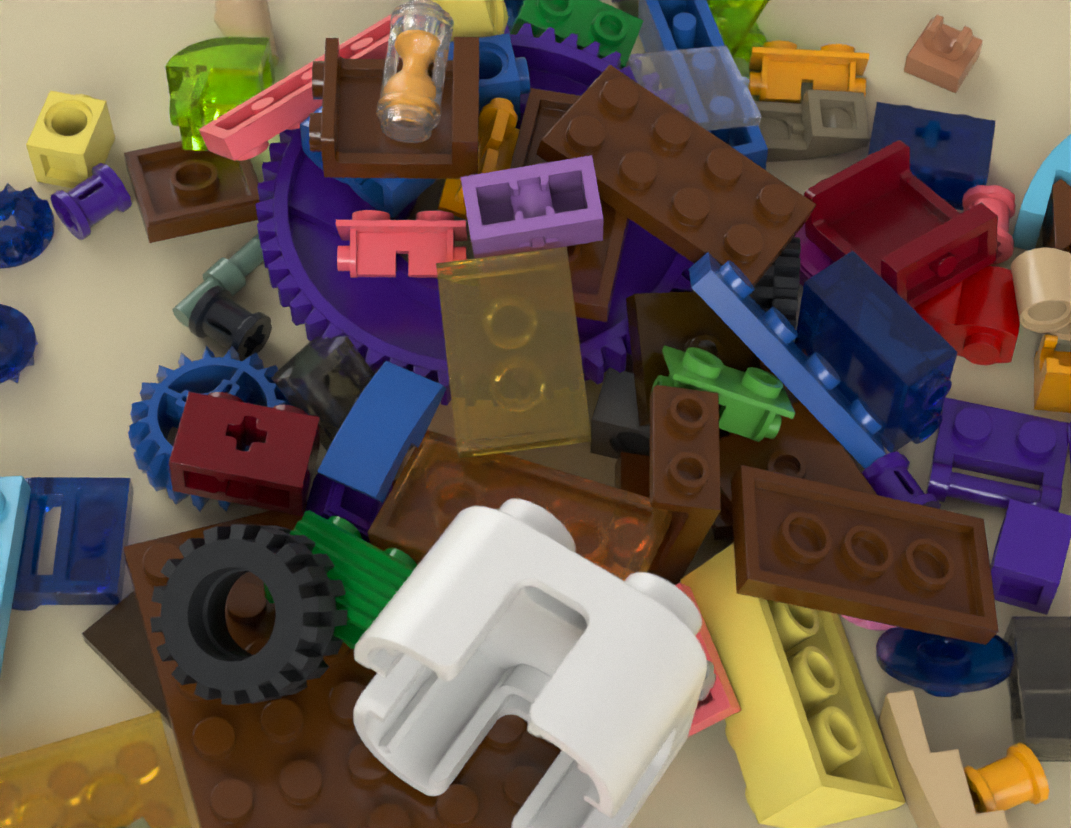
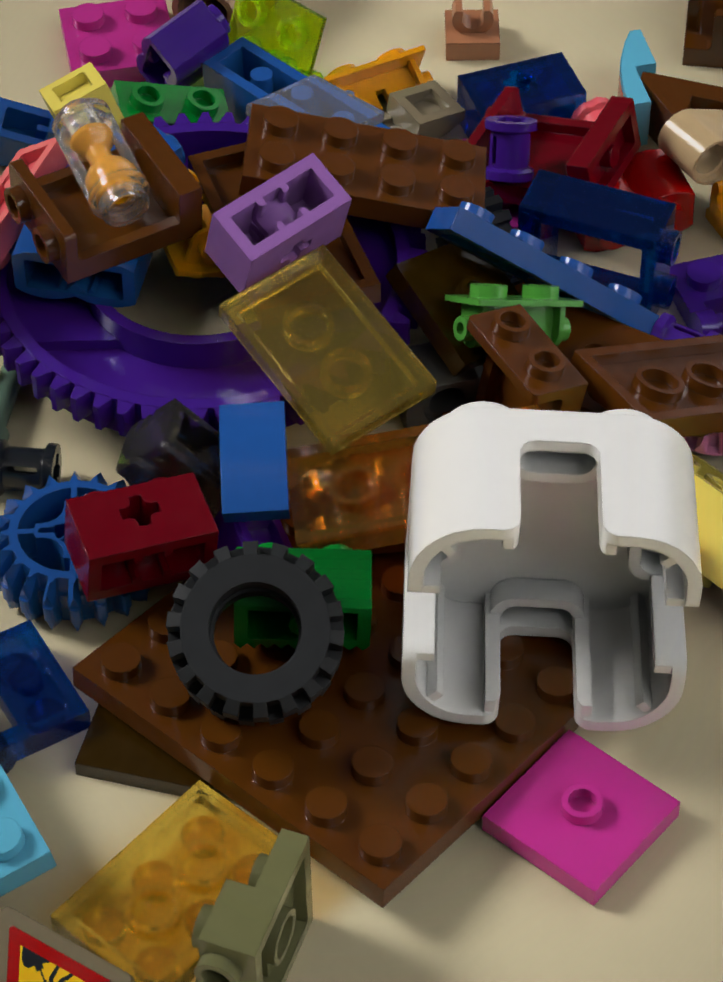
camera: 30 degrees left, 10 degrees down
(378, 239) = (140, 320): coral hinge -> none
(852, 210) = (510, 148): none -> dark purple bush

